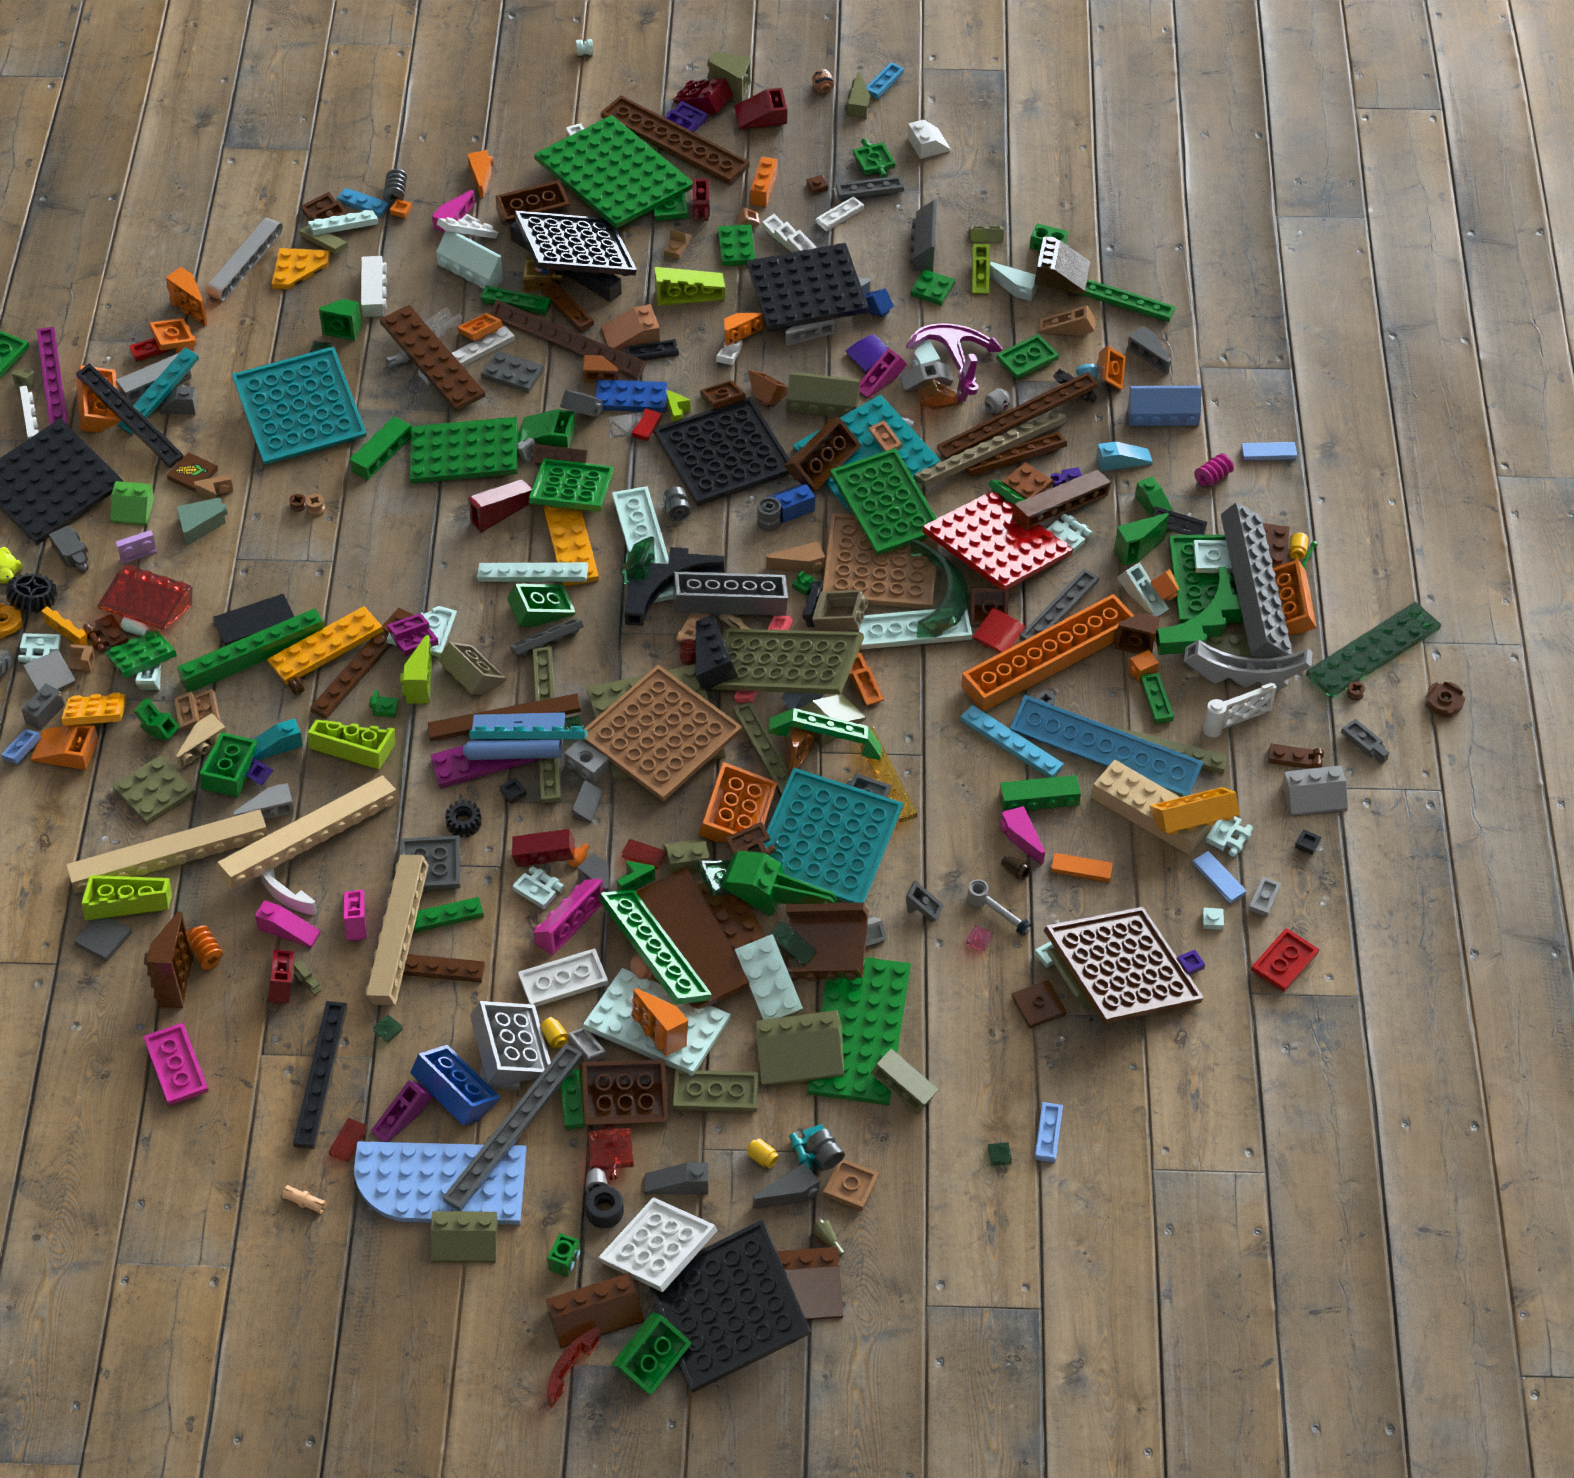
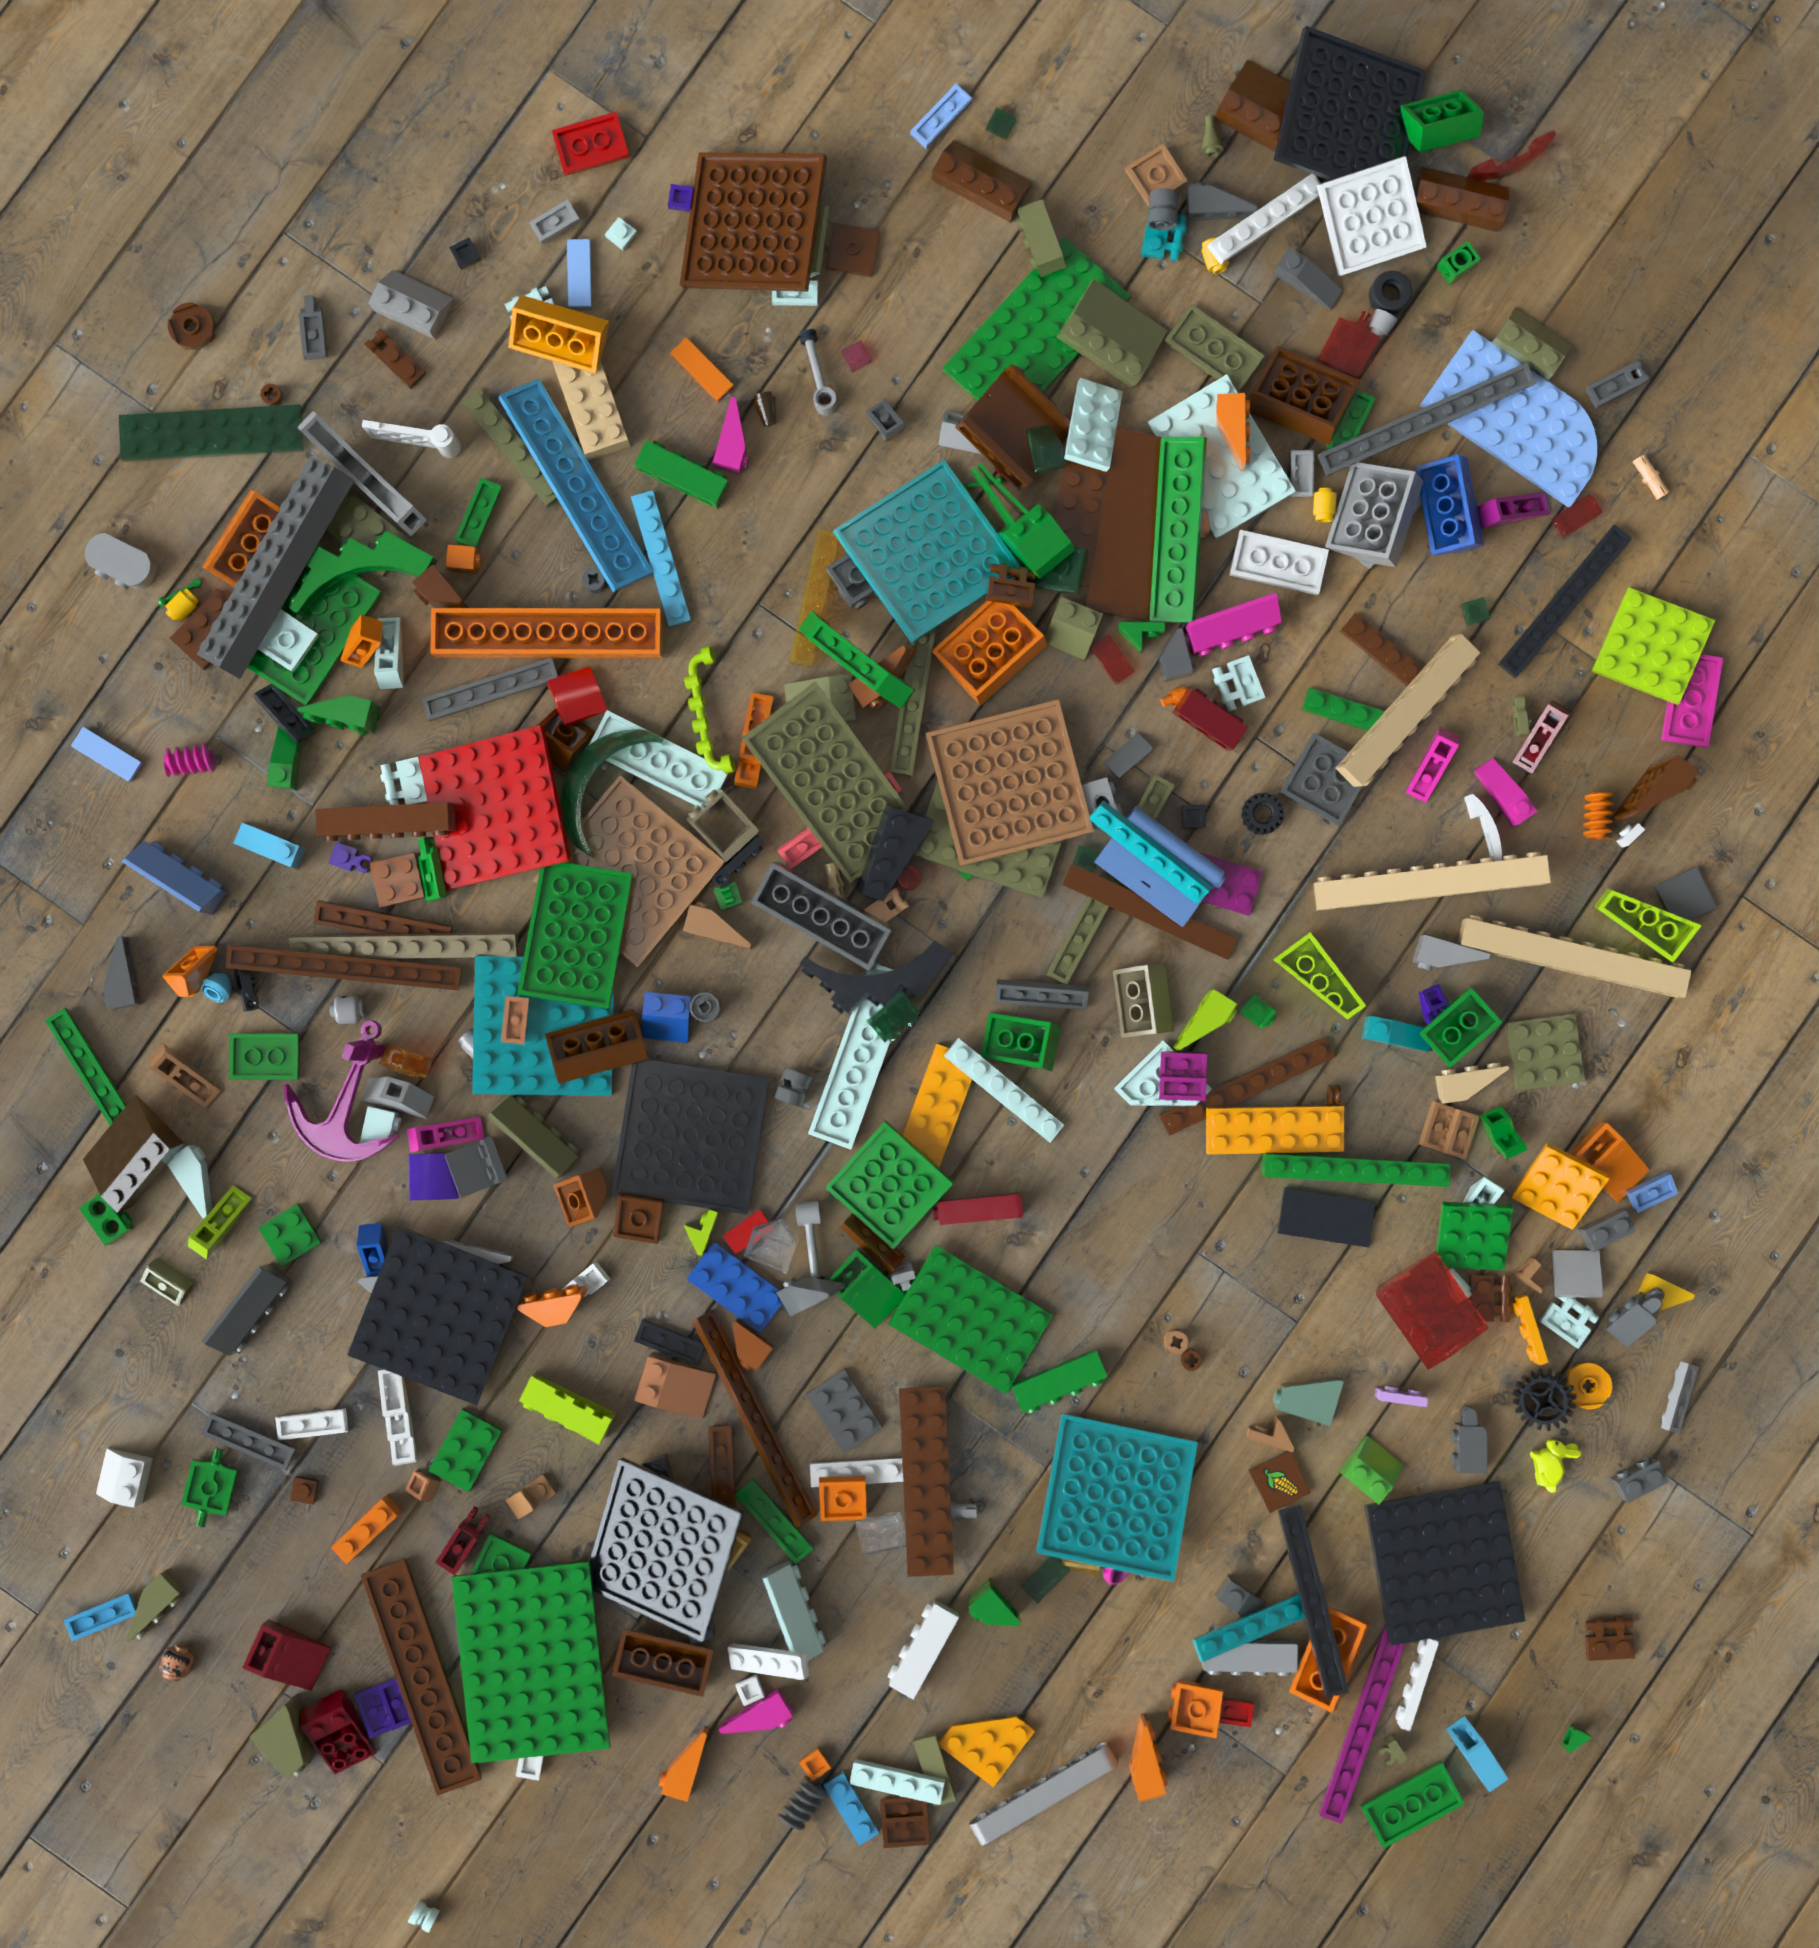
camera: 145 degrees left, 35 degrees up
(229, 1080) = (1653, 646): none -> lime plate
(373, 1250) = (1617, 384): none -> dark grey plate
(612, 448) = (808, 1215): none -> light grey piece
(744, 1188) = (1265, 219): none -> white plate
(847, 364) = (475, 1167): none -> dark grey bracket
(902, 660) = (698, 704): none -> lime bar
(982, 1101) = (980, 180): none -> reddish brown slope
(1359, 547) = (121, 562): none -> light grey brick

